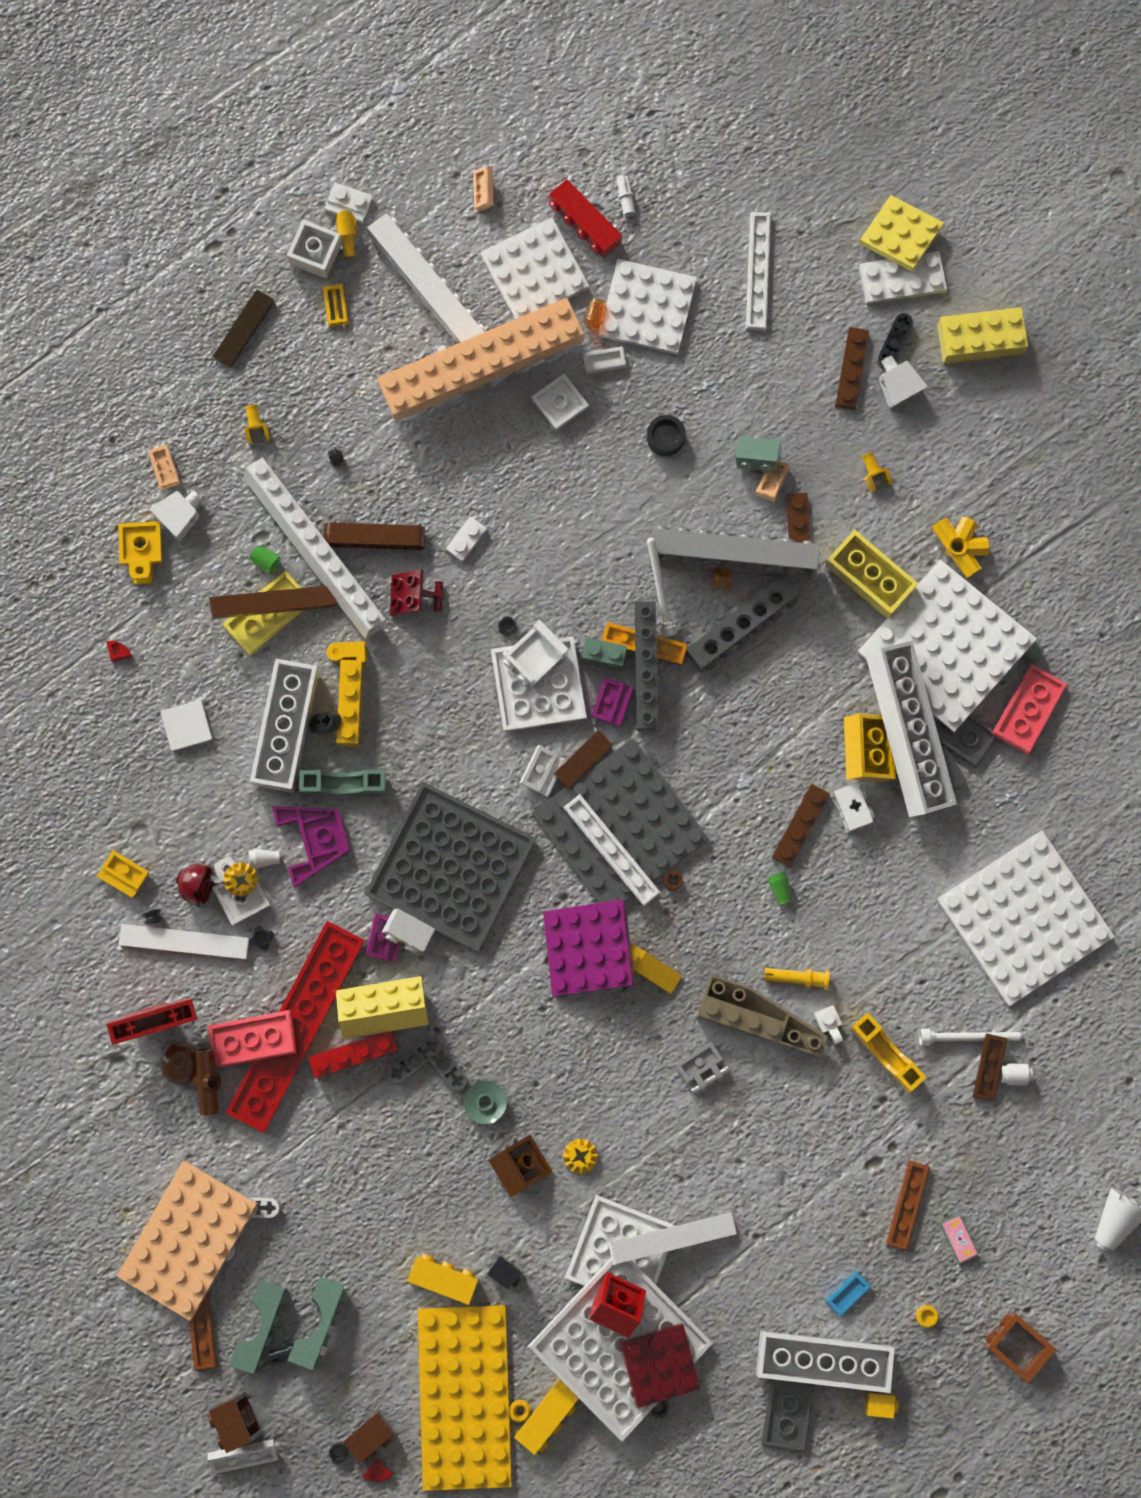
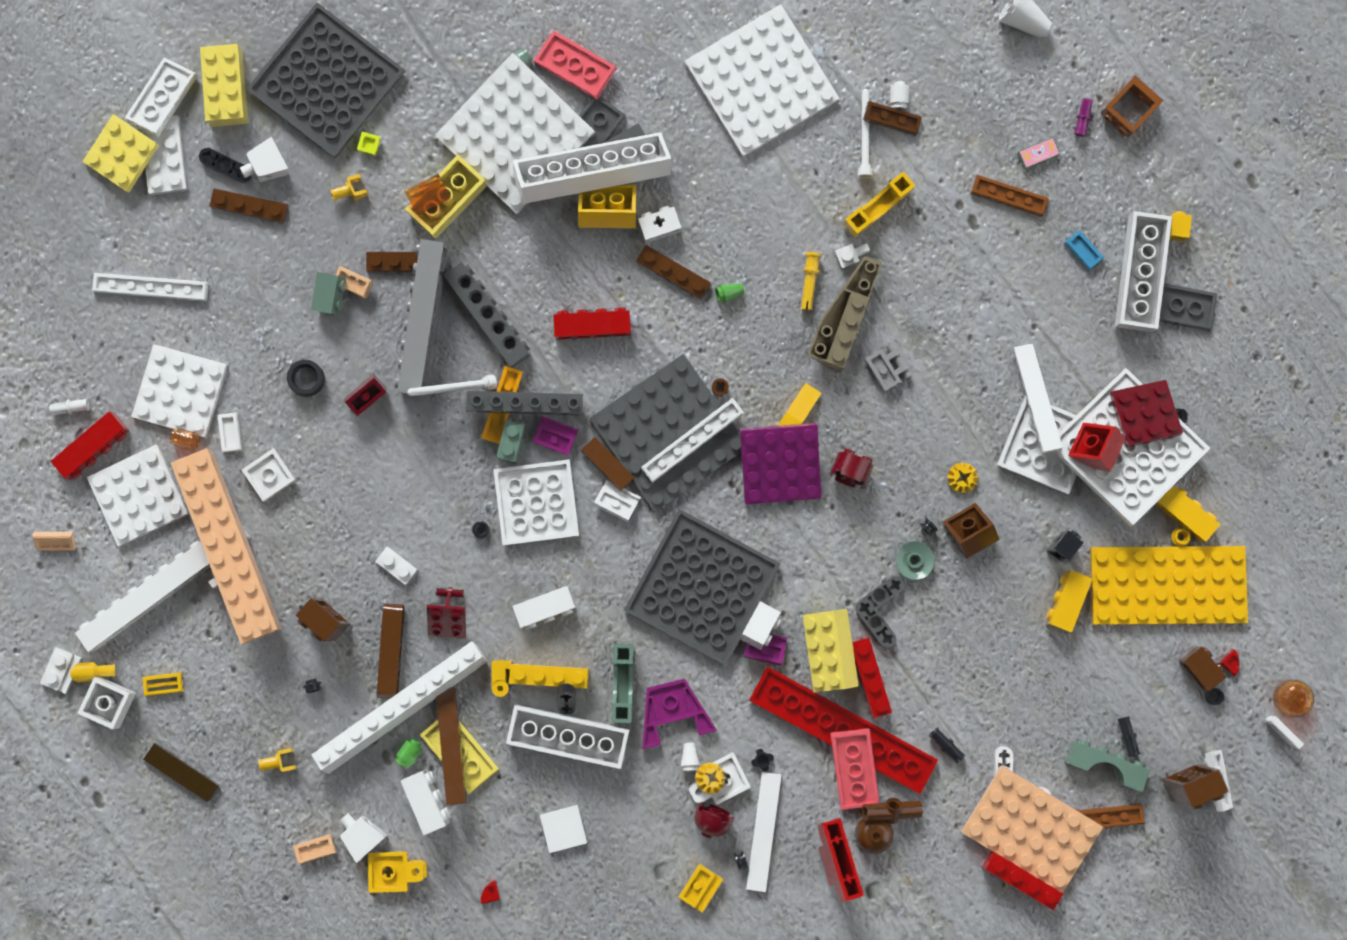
camera: 85 degrees left, 5 degrees up
(130, 1229) = (1022, 880): none -> red brick
(214, 578) = (426, 801): none -> white brick
(279, 1142) = (947, 745): none -> black pin
(307, 1351) = (1133, 722): sand green arch -> none
(404, 461) = (322, 620): none -> reddish brown brick
(423, 696) = (544, 608): none -> white brick
(523, 1117) = (928, 527): none -> black bush
(535, 654) = (510, 504): white panel -> none
(585, 1027) = (852, 469): none -> dark red brick
(649, 497) = (365, 394): none -> dark red brick
(722, 579) = (444, 332): clear orange wheel -> none
(737, 737) = (592, 324): none -> red brick
(871, 552) = (427, 194): none -> clear orange panel
(926, 490) = (369, 143): none -> neon yellow plate
(927, 1316) = (1103, 184): yellow tile -> none
(965, 271) = (161, 97): none -> white tile
(969, 546) = (423, 108): yellow piece -> none
(995, 442) = (326, 80): none -> dark grey plate
(1004, 1290) = (1083, 117): none -> magenta axle

